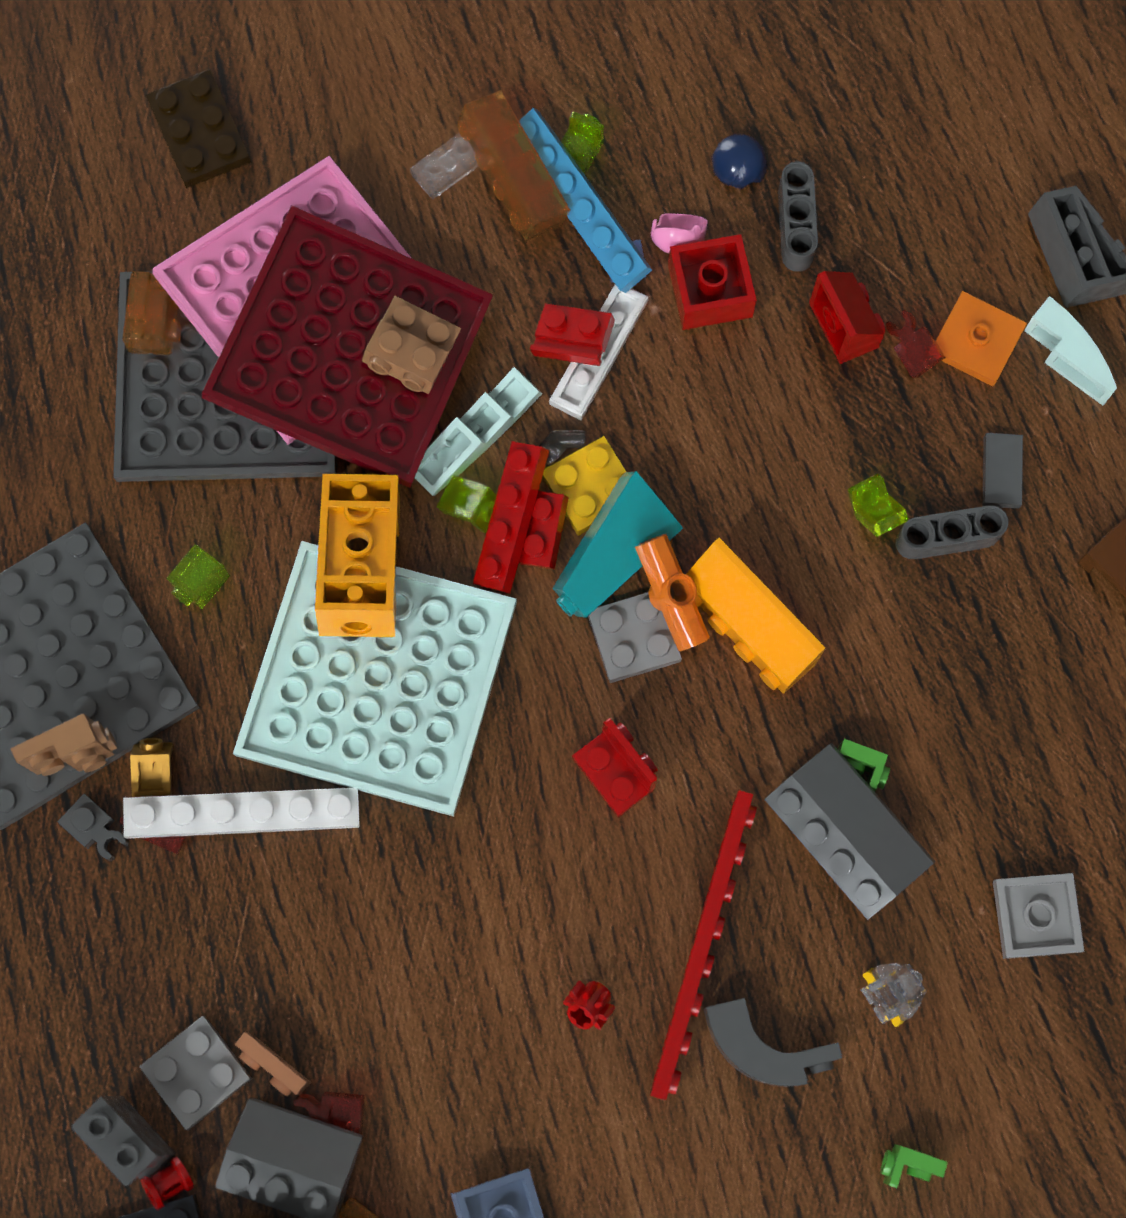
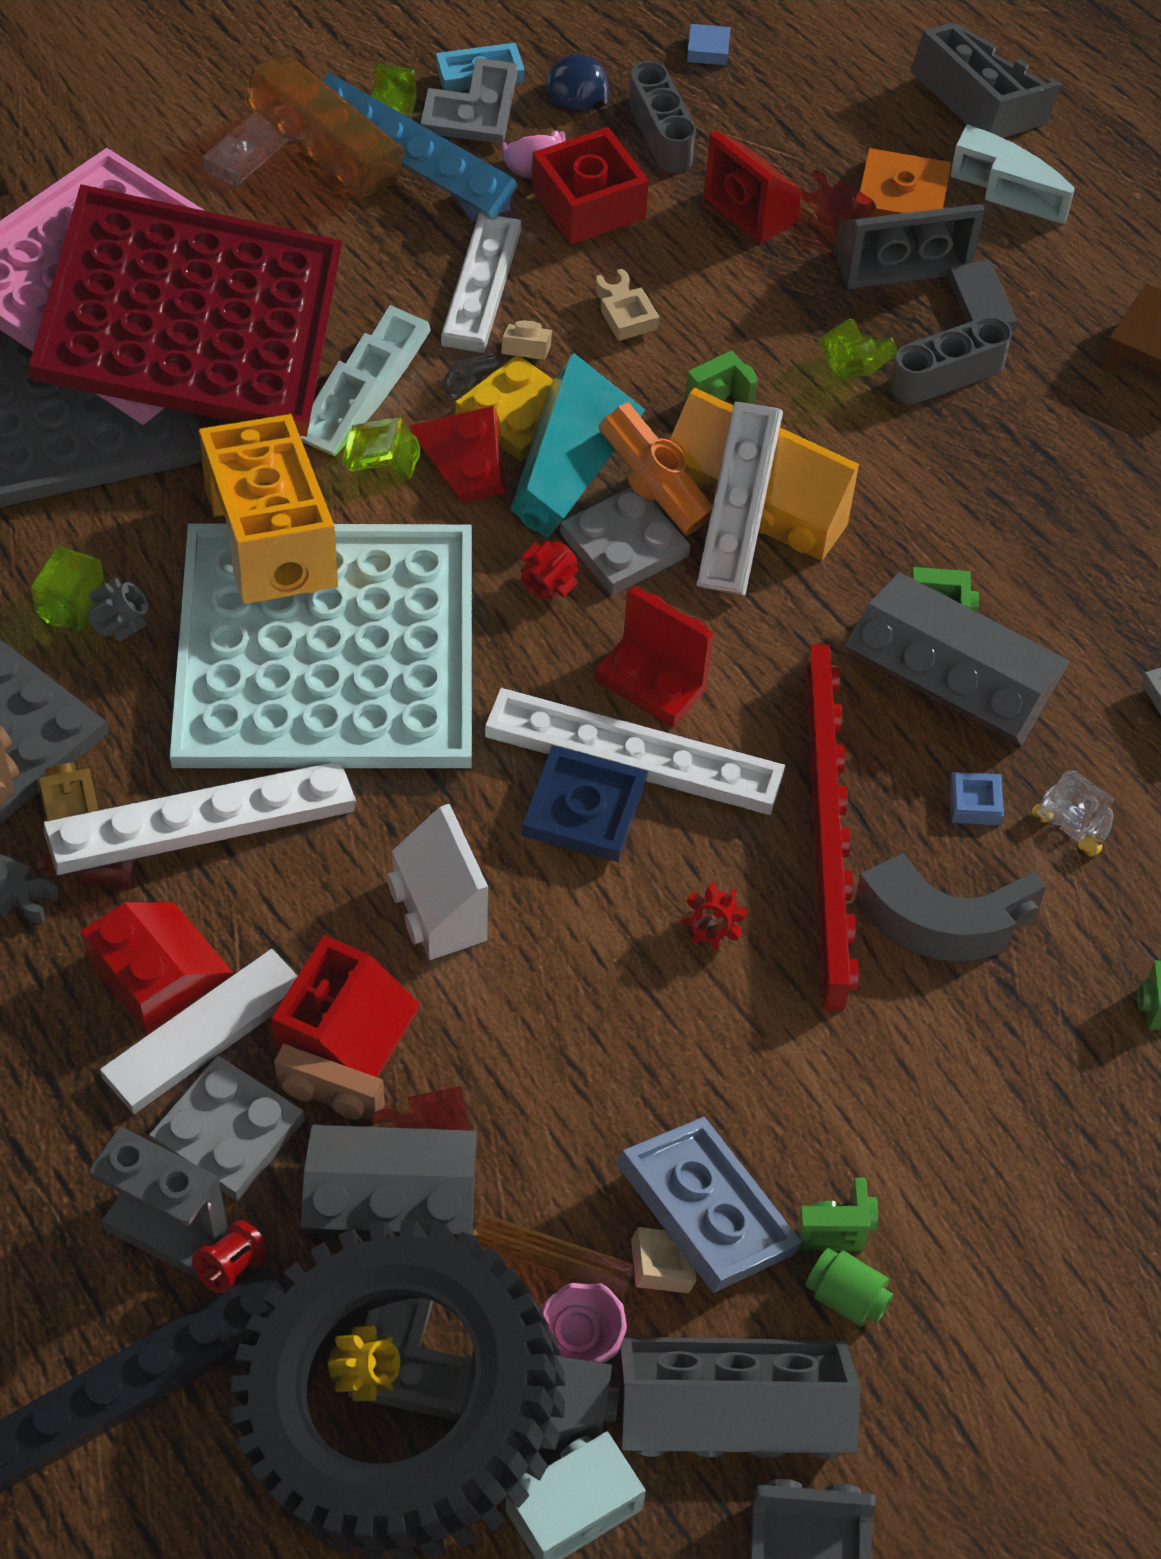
camera: 20 degrees left, 20 degrees down
(179, 924) = (152, 960): none -> red slope
(199, 988) = (199, 1032): none -> white tile
(228, 608) = (117, 609): none -> dark grey gear
(297, 1014) = (344, 1009): none -> red slope
(393, 927) = (440, 886): none -> white slope
(410, 345) = (264, 292): medium nougat plate -> none
(511, 517) = (437, 443): red plate -> none
(526, 875) = (584, 803): none -> dark blue plate
(563, 657) = (549, 570): none -> red gear
(572, 334) = (446, 267): red plate -> none
(578, 839) = (667, 757): none -> white plate
(614, 425) = (526, 340): none -> tan plate
(647, 176) = (476, 114): none -> light grey plate
(663, 124) = (457, 66): none -> medium azure plate
(705, 413) = (626, 310): none -> tan plate
(727, 641) = (739, 498): none -> white tile
(752, 506) = (724, 377): none -> bright green bracket
(825, 949) = (976, 798): none -> medium blue tile
(865, 140) = (708, 44): none -> medium blue tile
(956, 405) = (906, 245): none -> dark grey slope

